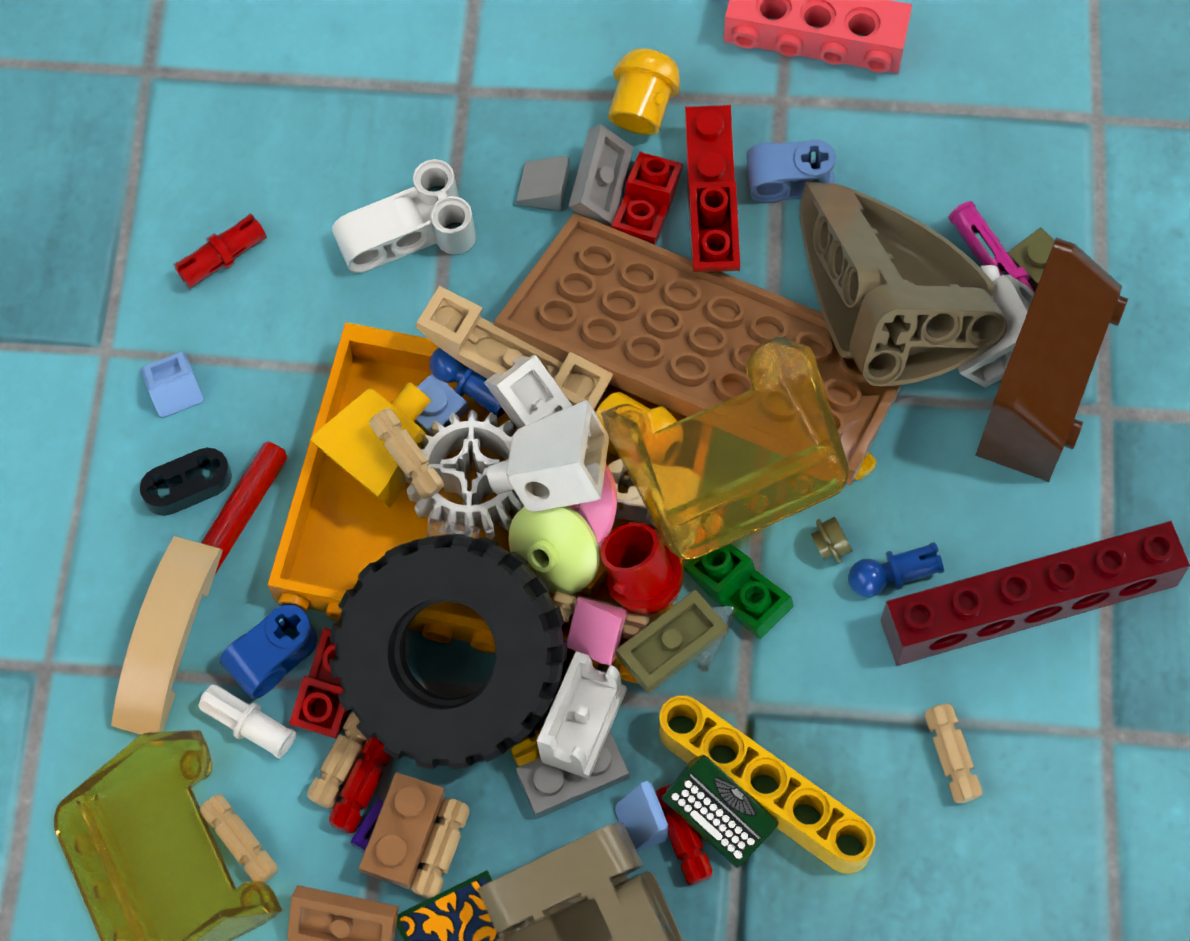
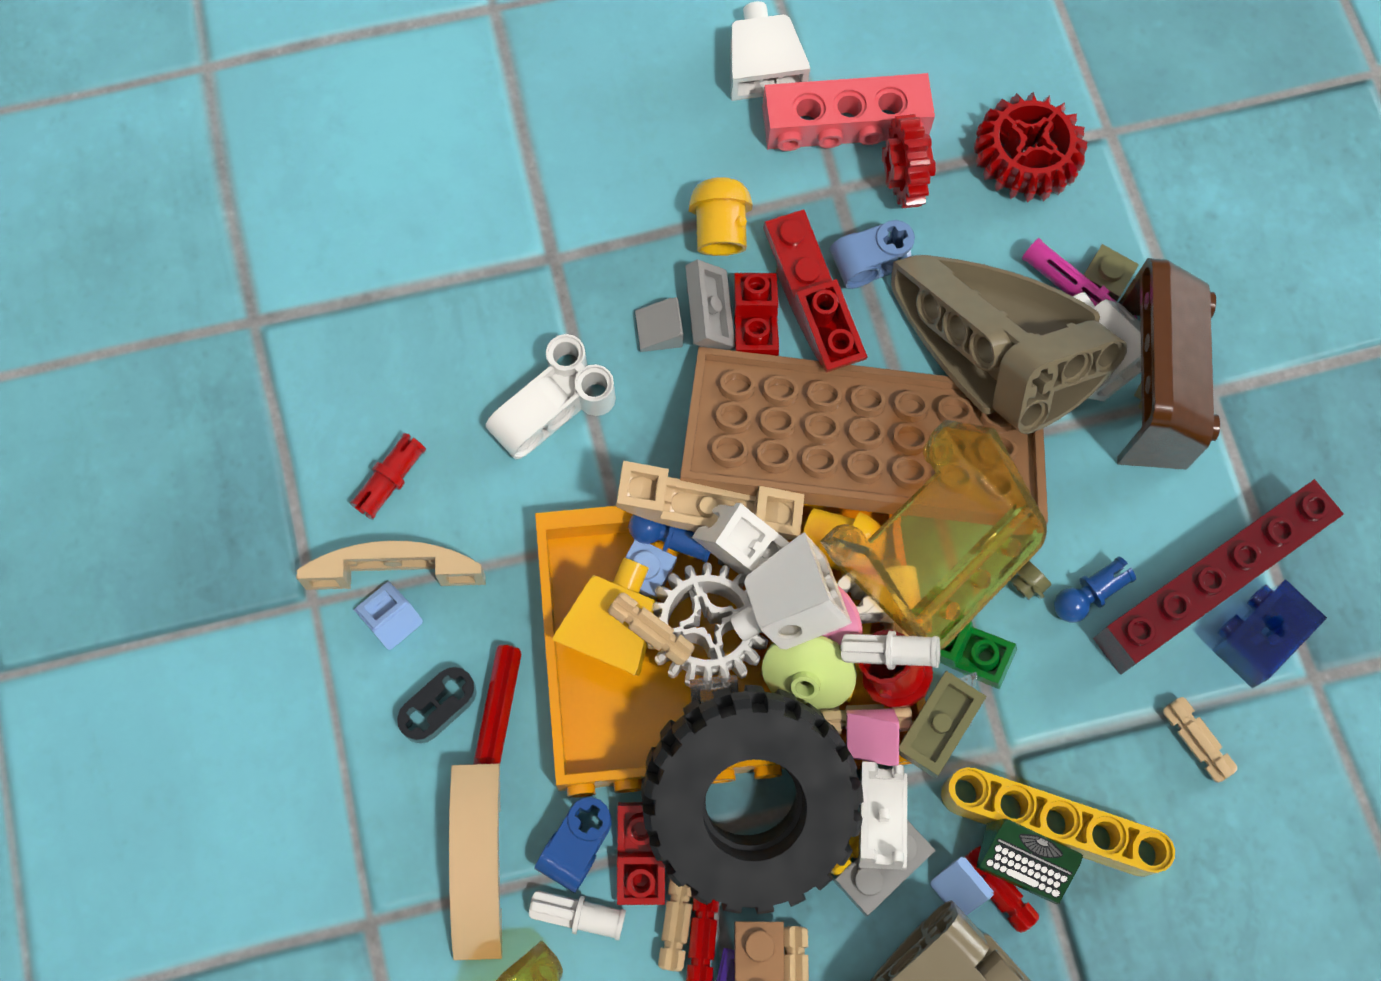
camera: 25 degrees left, 5 degrees up
(138, 320) = (335, 568): none -> tan slope
(634, 539) = (891, 650): none -> white axle
(856, 85) = (908, 161): none -> red gear
(997, 124) = (1040, 167): none -> red gear
(1050, 688) = (1290, 623): none -> clear blue brick

